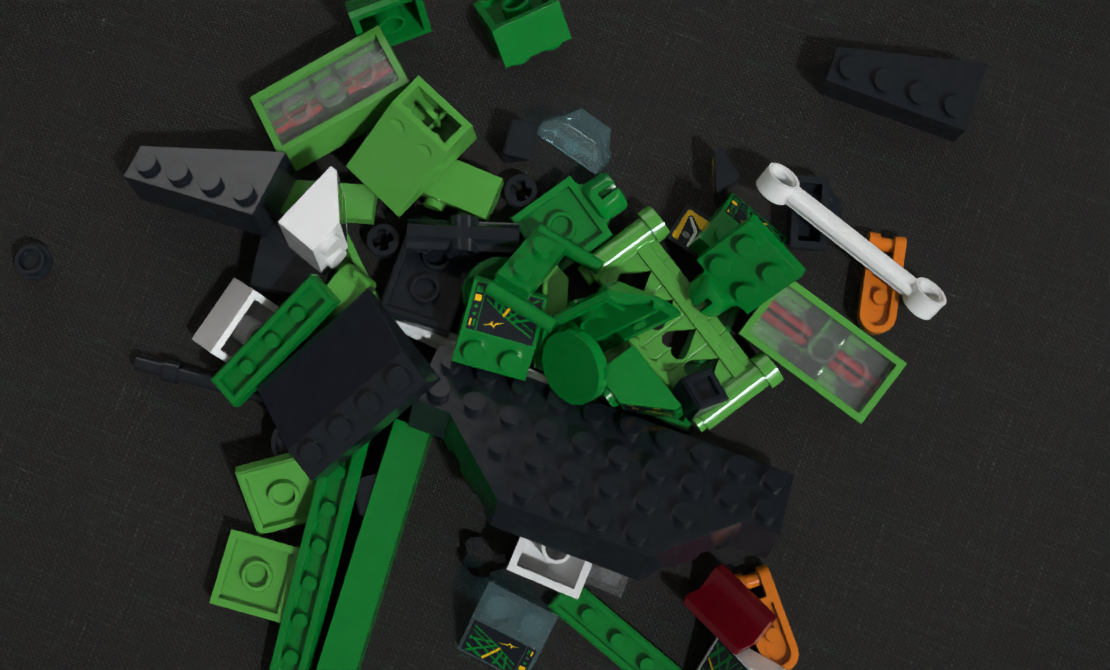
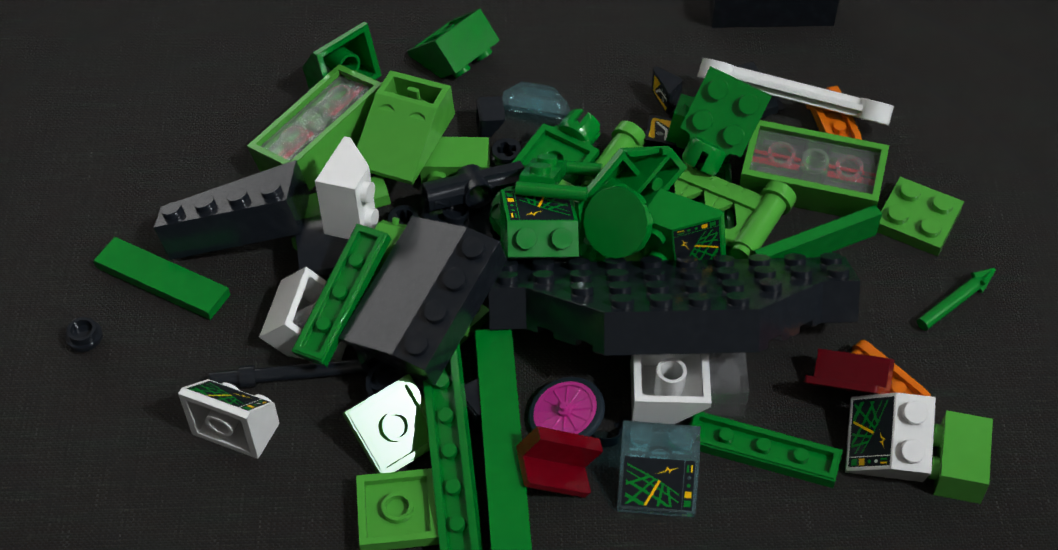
camera: 20 degrees left, 30 degrees down
(126, 218) = (162, 278): none -> green tile
(137, 418) = (229, 416): none -> white slope
(413, 596) = (557, 460): none -> dark red panel
(451, 532) = (568, 406): none -> dark pink wheel
(699, 393) = (738, 225): black slope -> none
(782, 434) = (828, 236): none -> green tile
(905, 436) = (919, 216): none -> bright green plate
(919, 540) = (977, 283): none -> green piece

